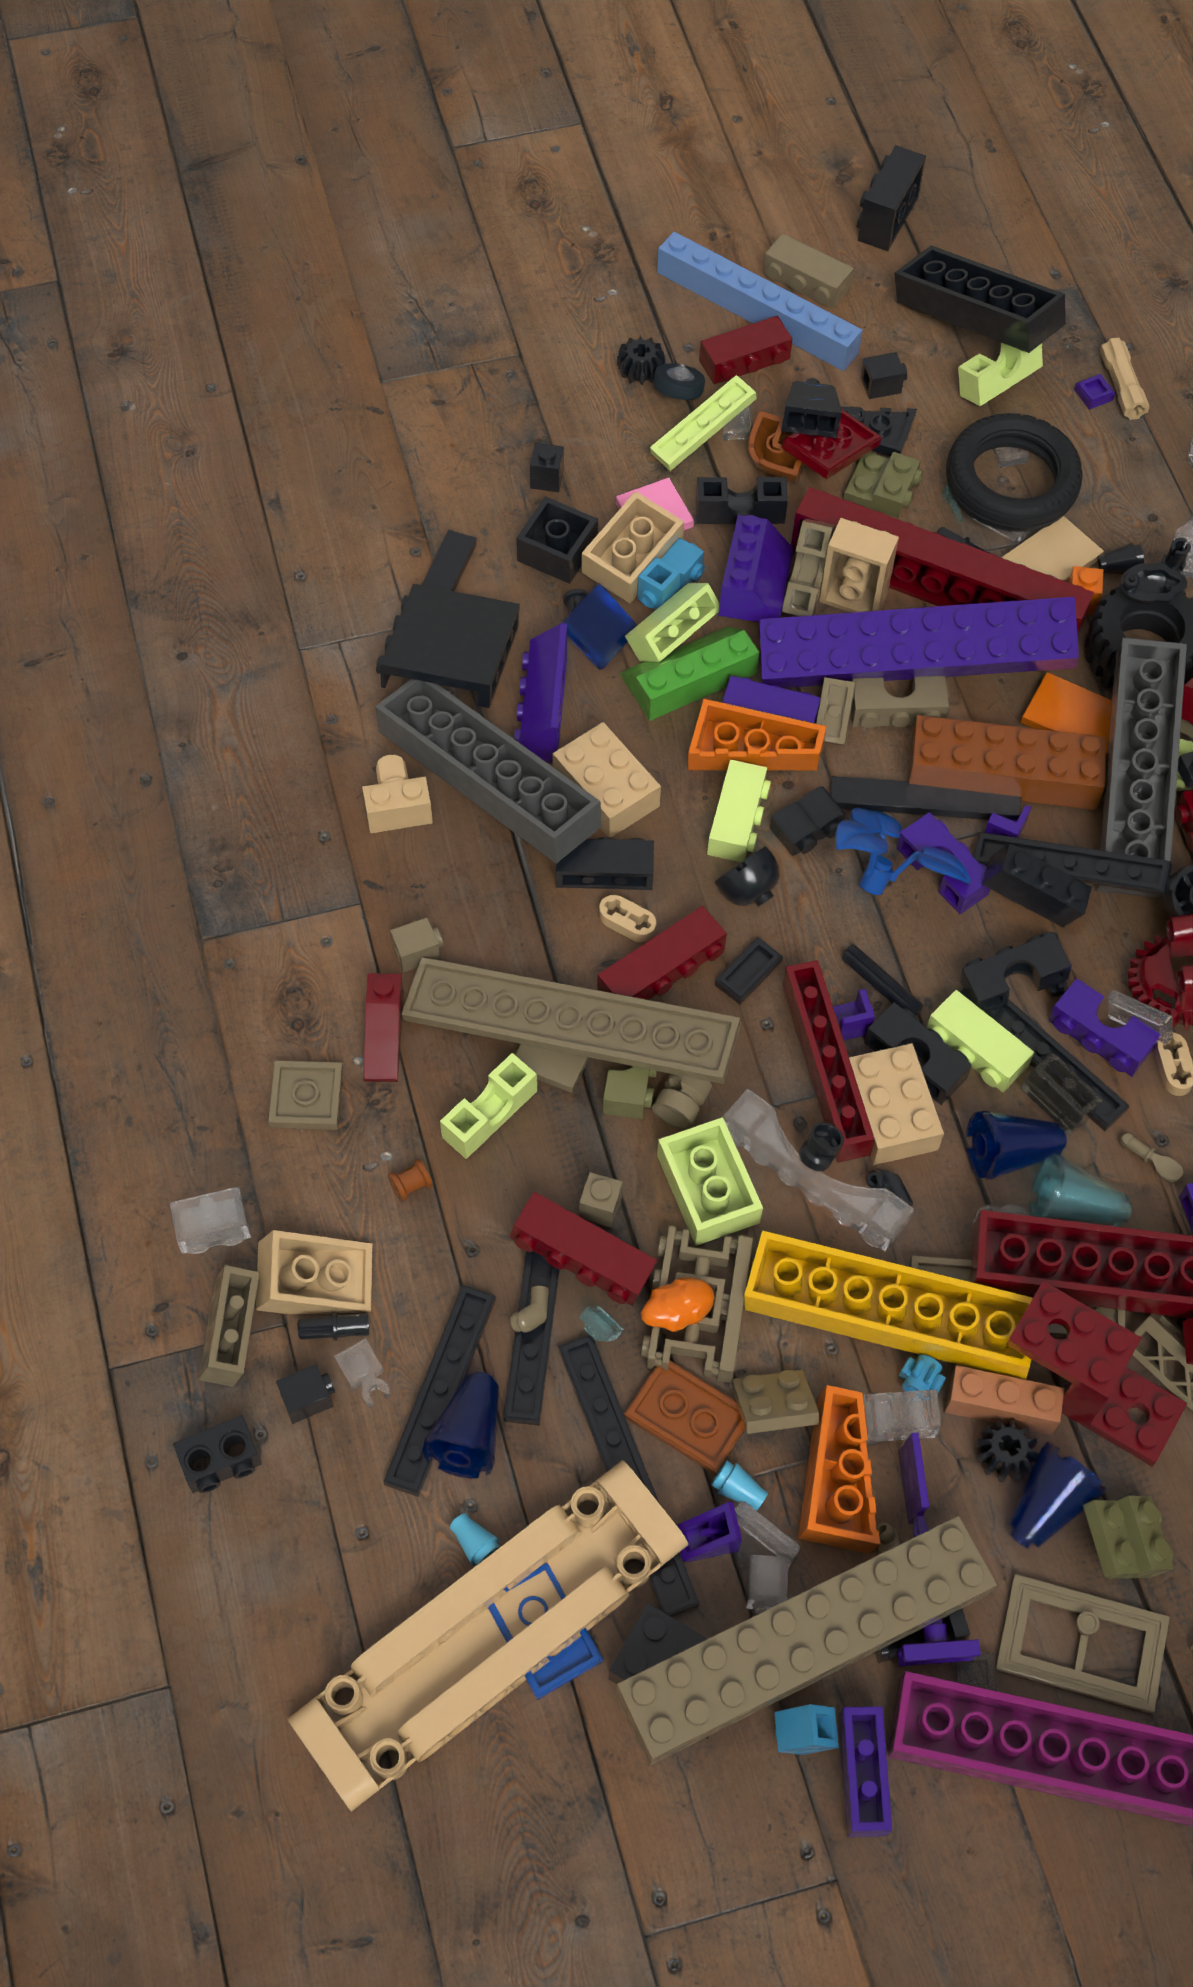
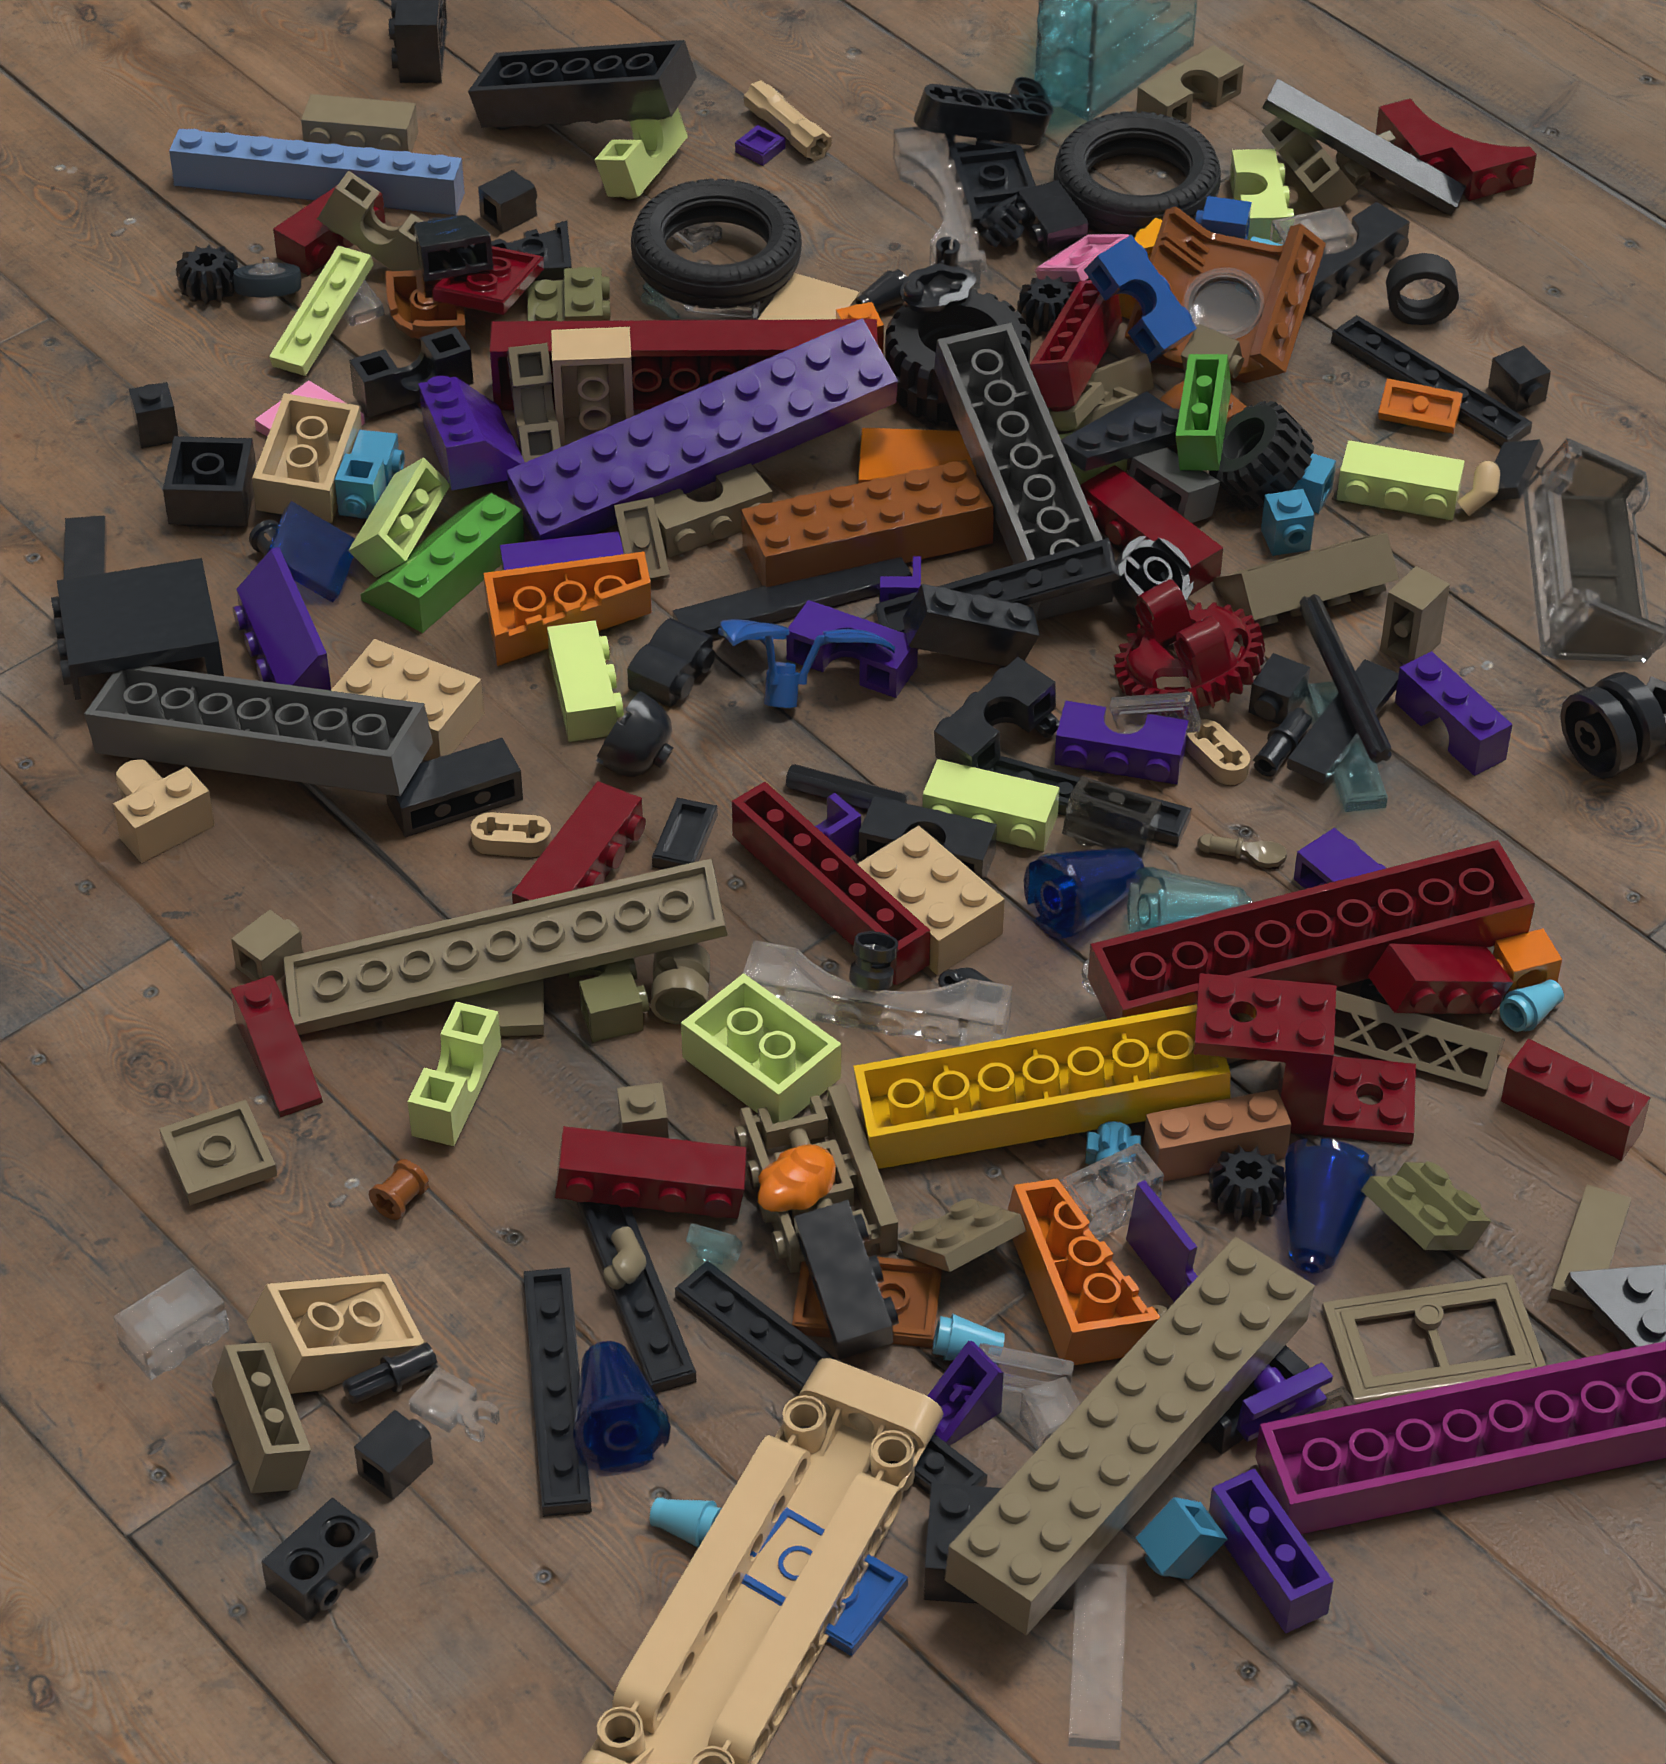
camera: 25 degrees left, 15 degrees down
(672, 1403) = (846, 1279): none -> black brick
(703, 1792) = (1098, 1657): none -> clear tile
(758, 355) = (353, 217): none -> dark tan arch

